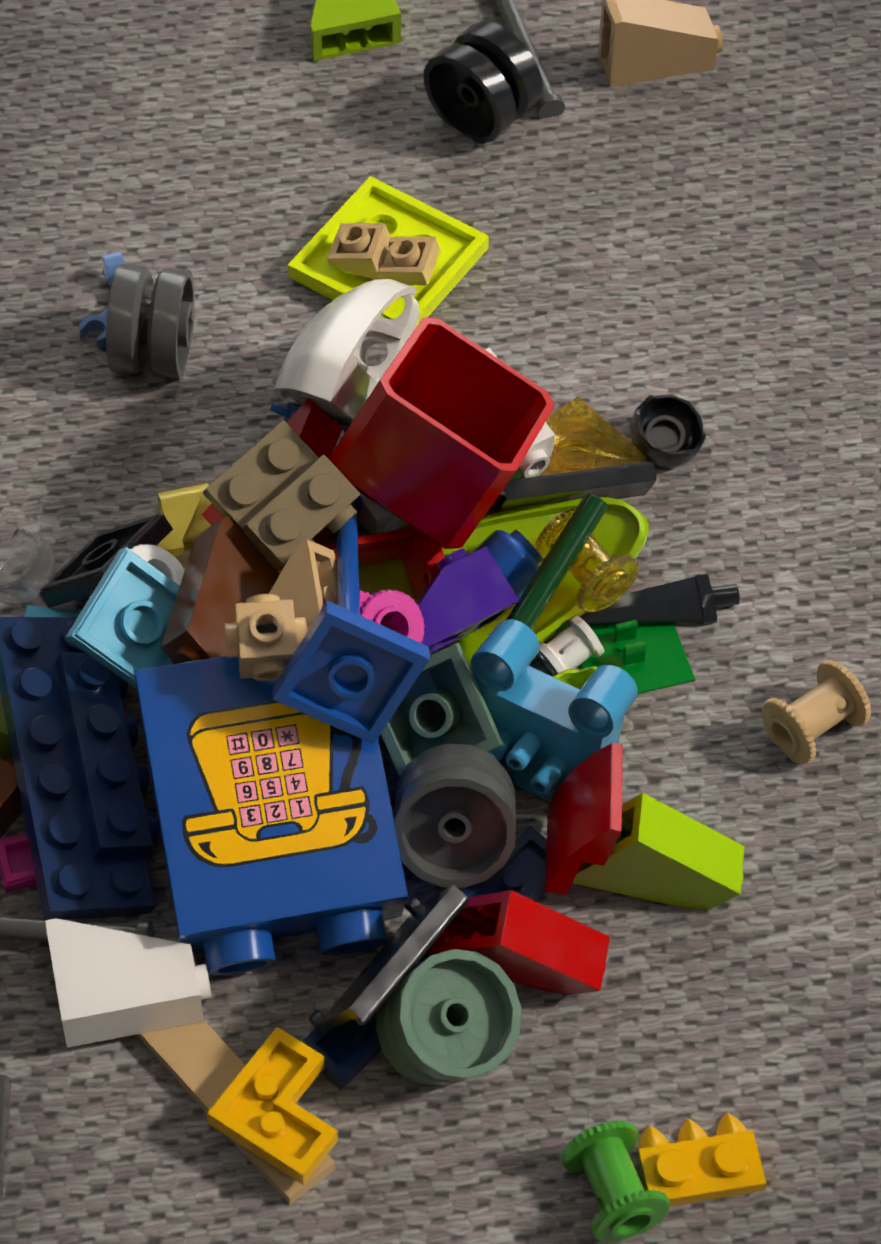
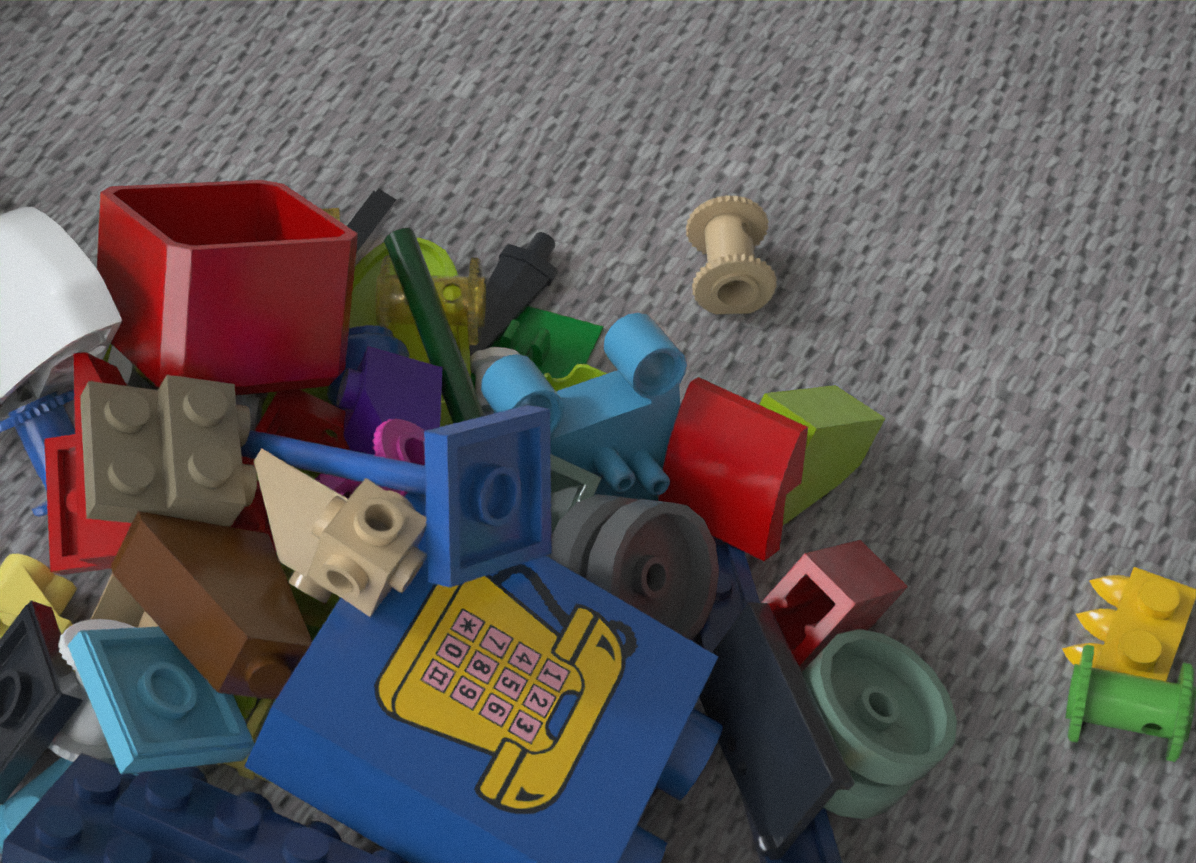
camera: 55 degrees left, 5 degrees down
(667, 422) = (329, 177): black hair -> none

